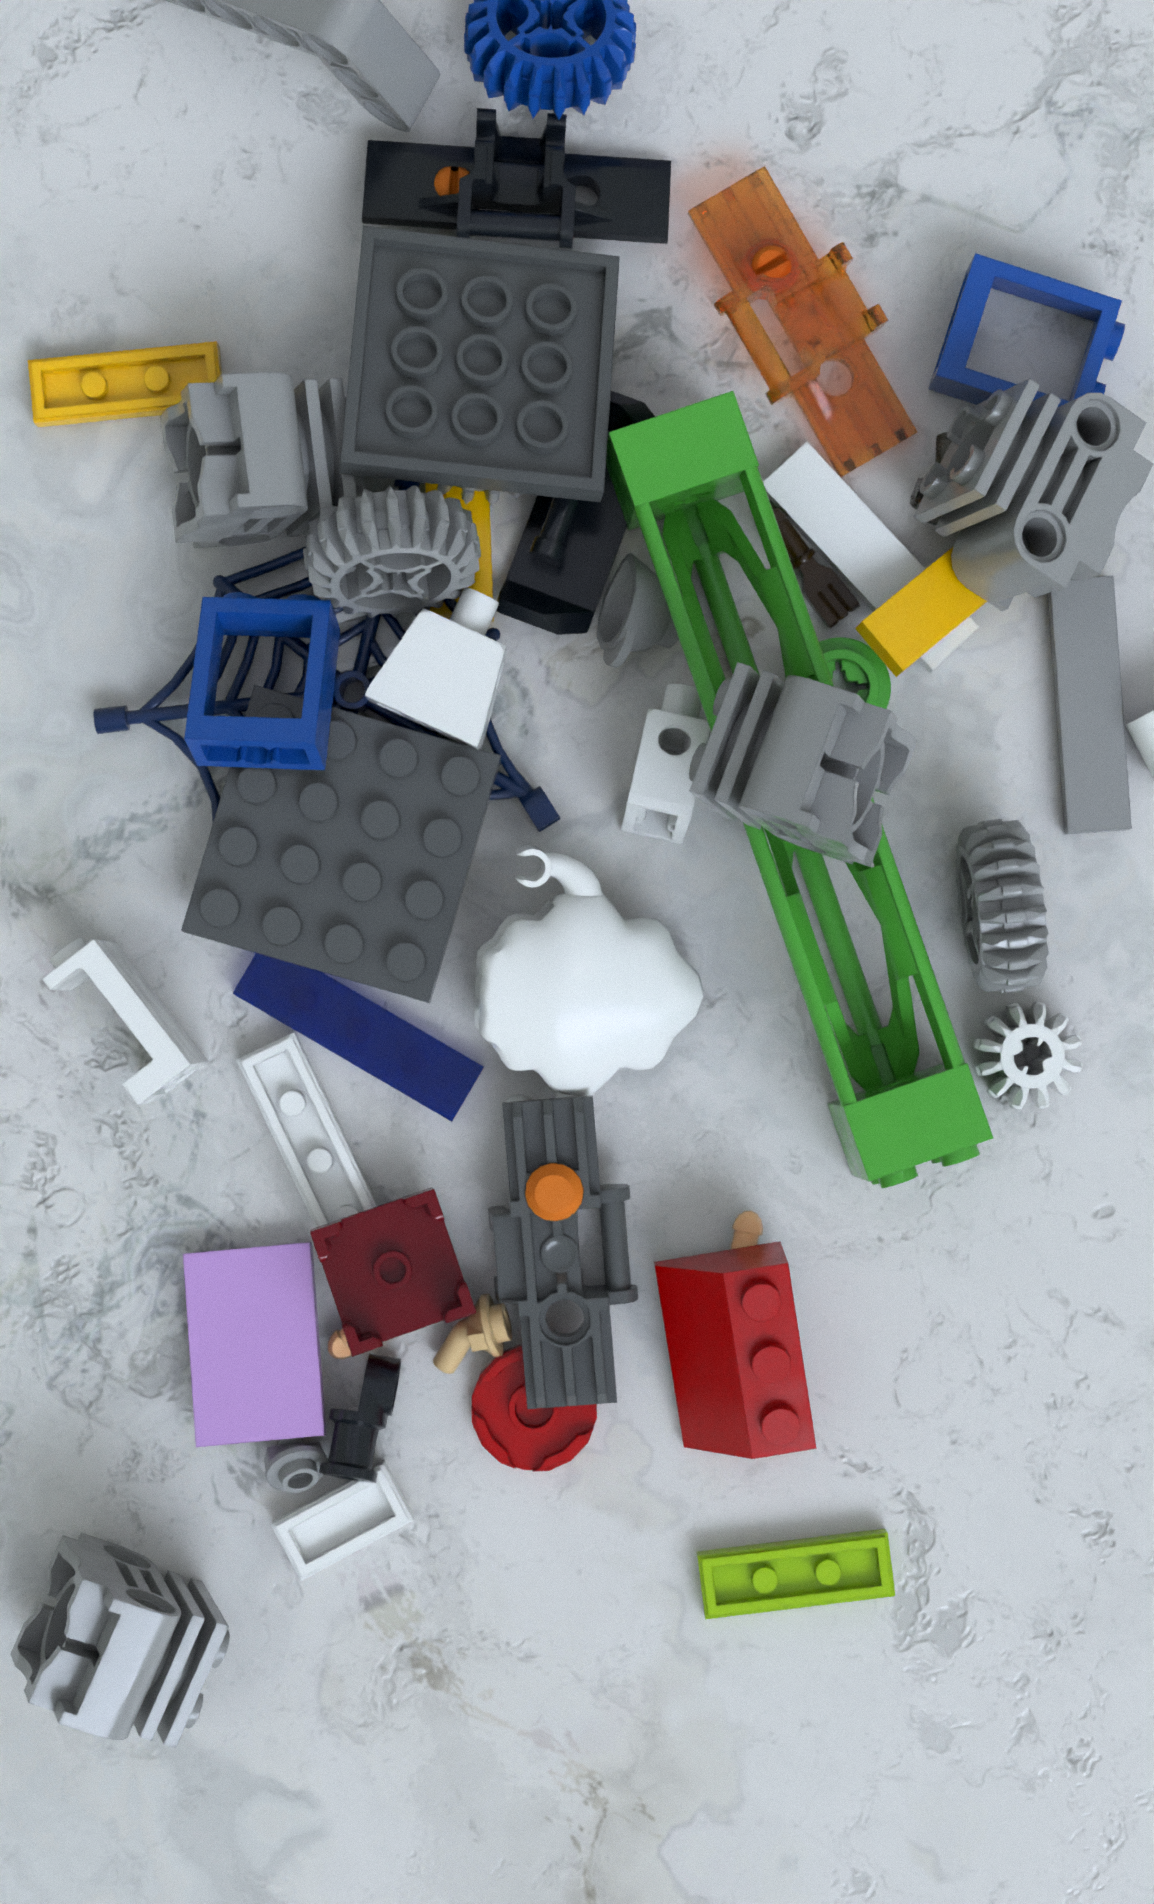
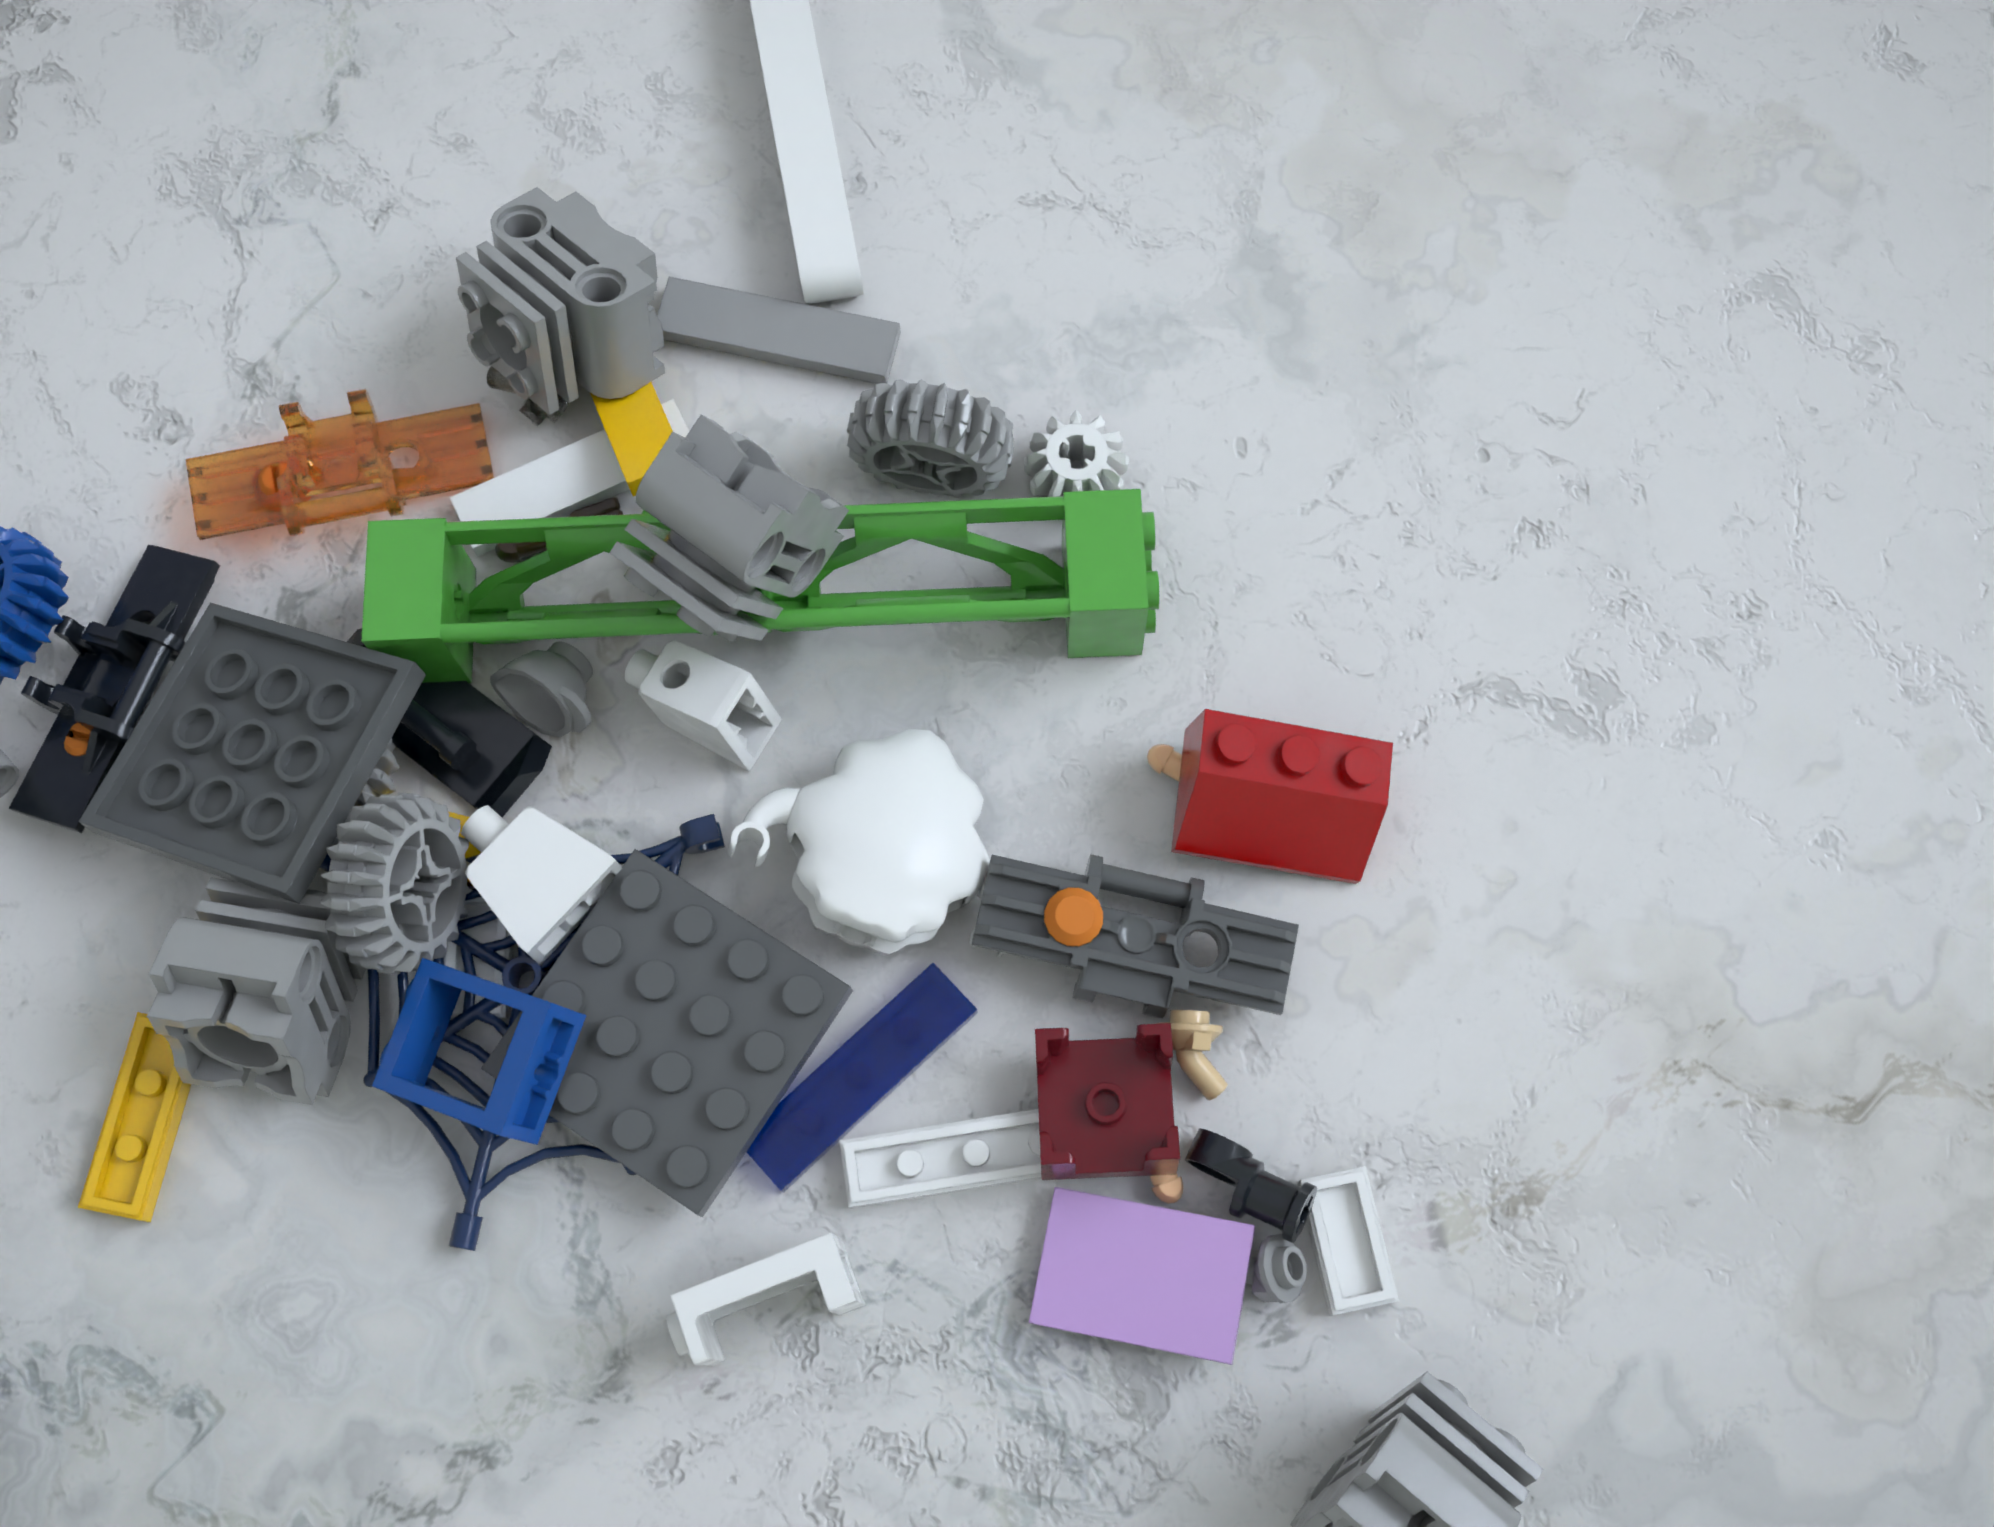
camera: 75 degrees left, 15 degrees down
(523, 1436) = (1300, 1038): red tile -> none
(796, 1573) = (1510, 813): lime tile -> none
(984, 273) = (366, 297): blue window -> none

